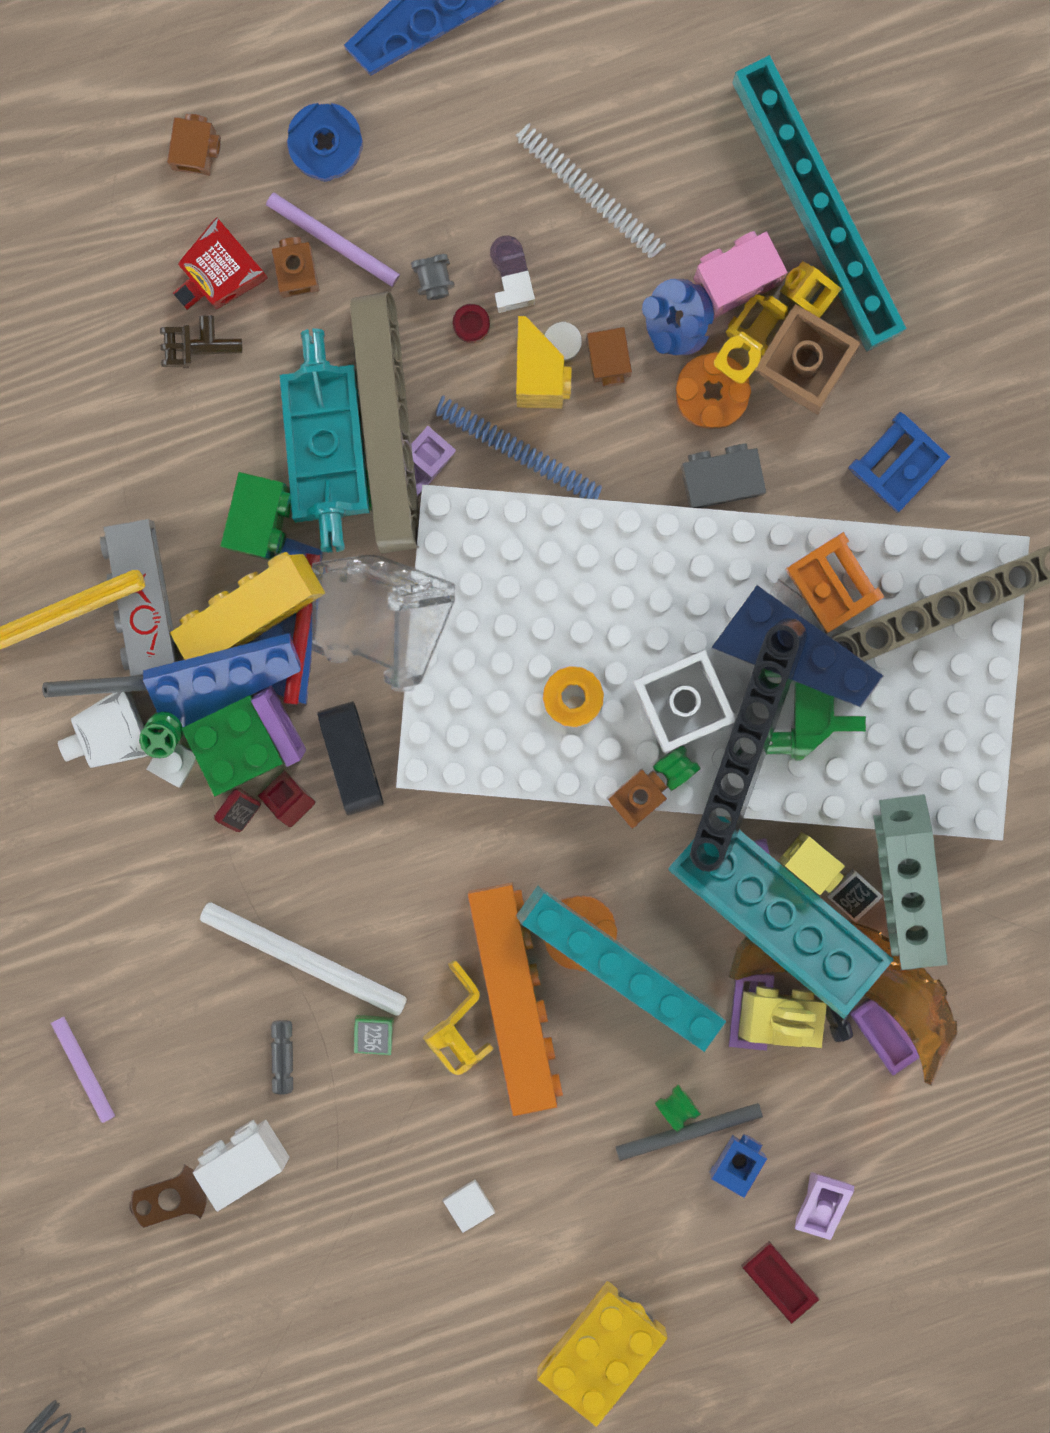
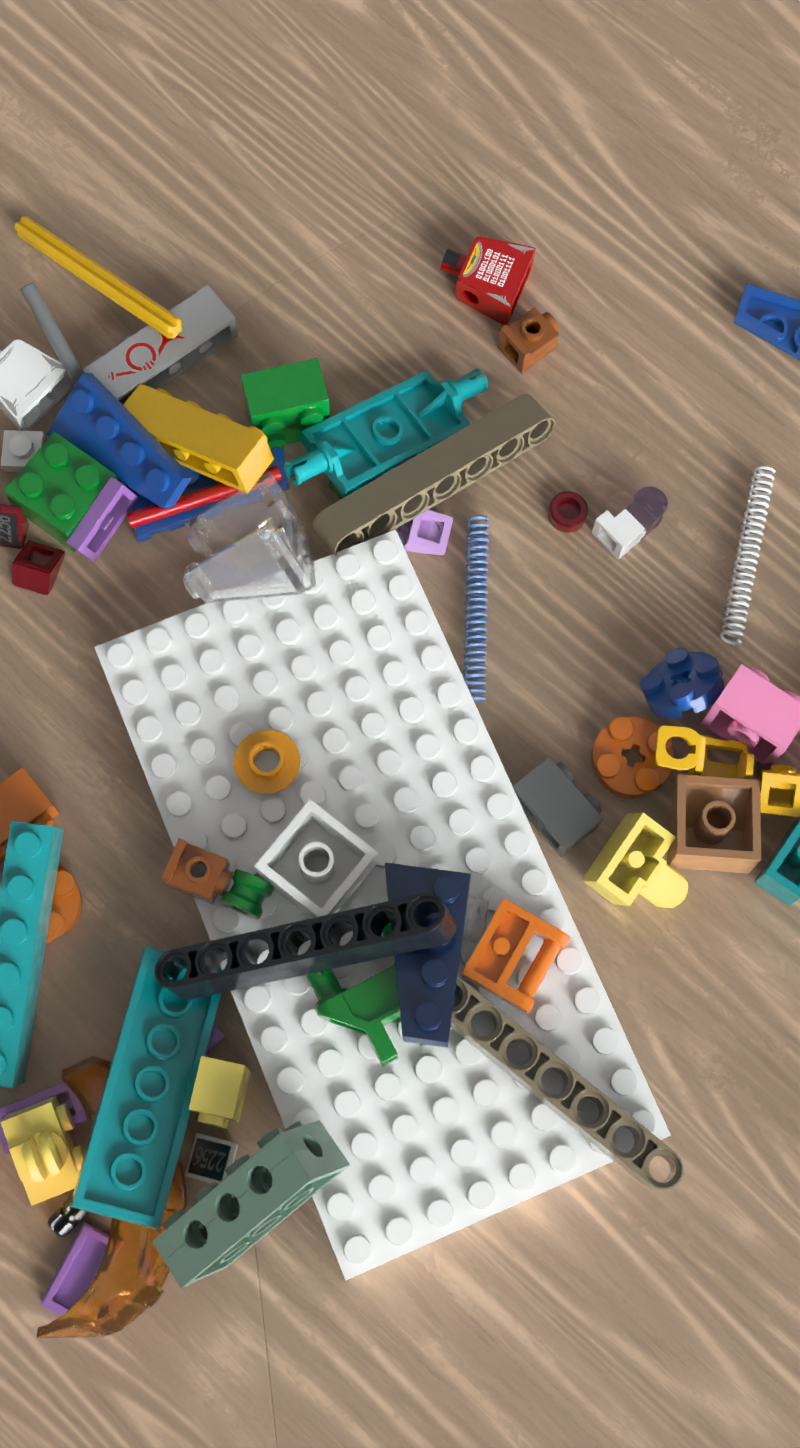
camera: 60 degrees right, 15 degrees down
(161, 743) = (34, 409): green wheel -> none
(193, 145) = (585, 206): dark orange brick -> none
(205, 345) = (410, 284): dark brown arm -> none
(332, 239) = (572, 361): lavender bar -> none
(346, 143) = (648, 330): blue plate -> none
(350, 758) = (104, 601): black beam -> none
(433, 276) = (591, 455): dark grey brick -> none
(540, 370) = (555, 573): yellow slope -> none
(565, 339) = (598, 598): white tile -> none
(609, 356) = (609, 643): dark orange brick -> none
(805, 442) = (635, 864): none -> light yellow brick
(908, 471) = (666, 983): blue plate -> none

